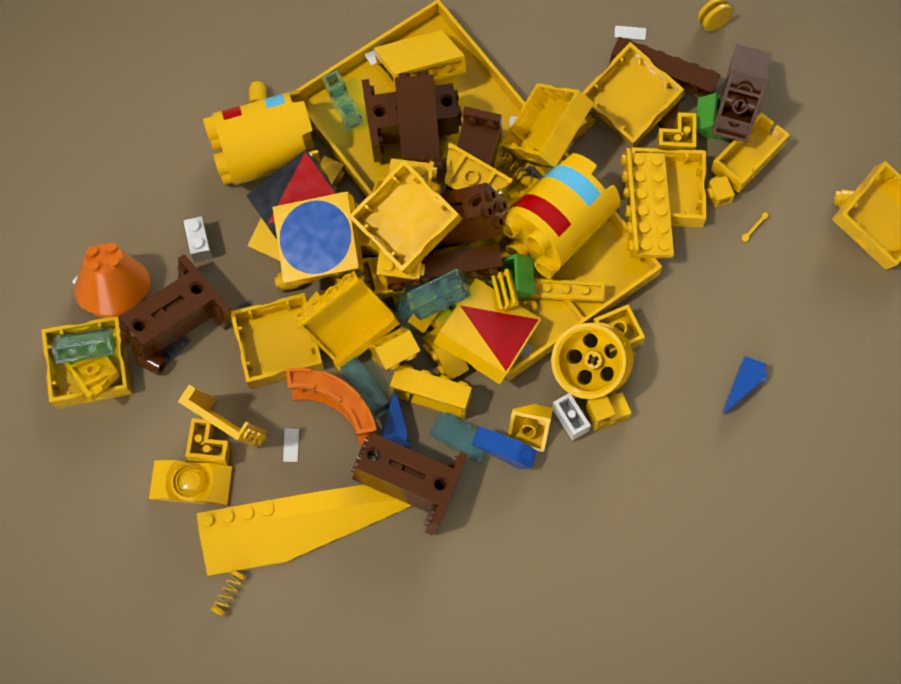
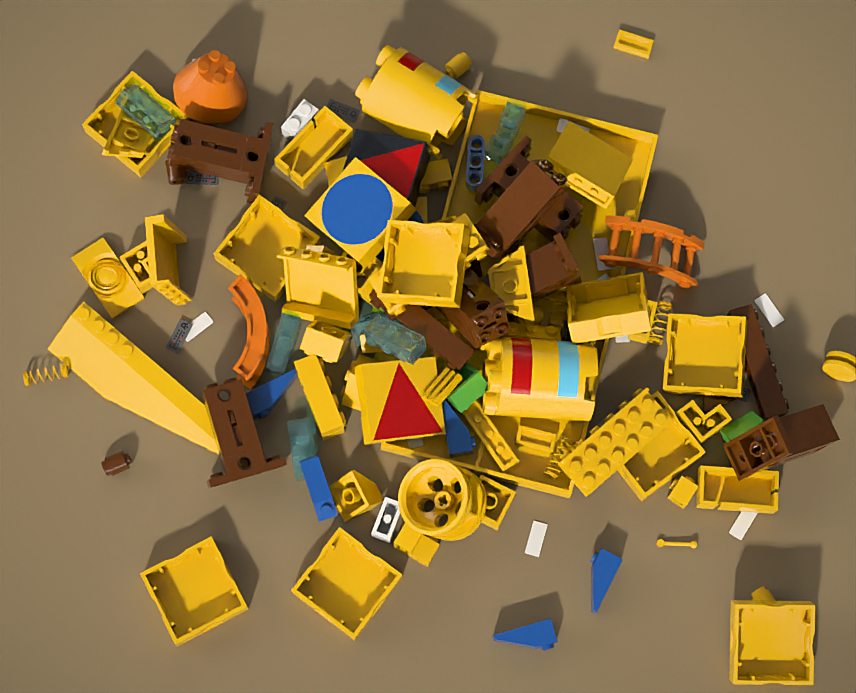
camera: 45 degrees right, 5 degrees up
(215, 204) = (343, 110): none -> dark grey sticker
(228, 244) = (313, 147): none -> yellow piece
(287, 464) = (179, 336): none -> dark grey sticker
(342, 132) = (474, 154): none -> medium blue beam
(350, 592) = (116, 463): none -> reddish brown brick
(491, 106) = (601, 248): none -> white sticker
(507, 610) = (194, 591): none -> yellow tile
(514, 51) = (659, 231): none -> orange fence
(552, 314) = (457, 434): none -> blue slope
(595, 261) = (535, 438): none -> yellow tile
(596, 487) = (347, 584): none -> yellow tile
(635, 269) = (550, 474): none -> yellow piece
(671, 322) = (536, 538): none -> white sticker
(739, 296) = (602, 573): none -> blue slope
(776, 172) = (742, 524): none -> white sticker

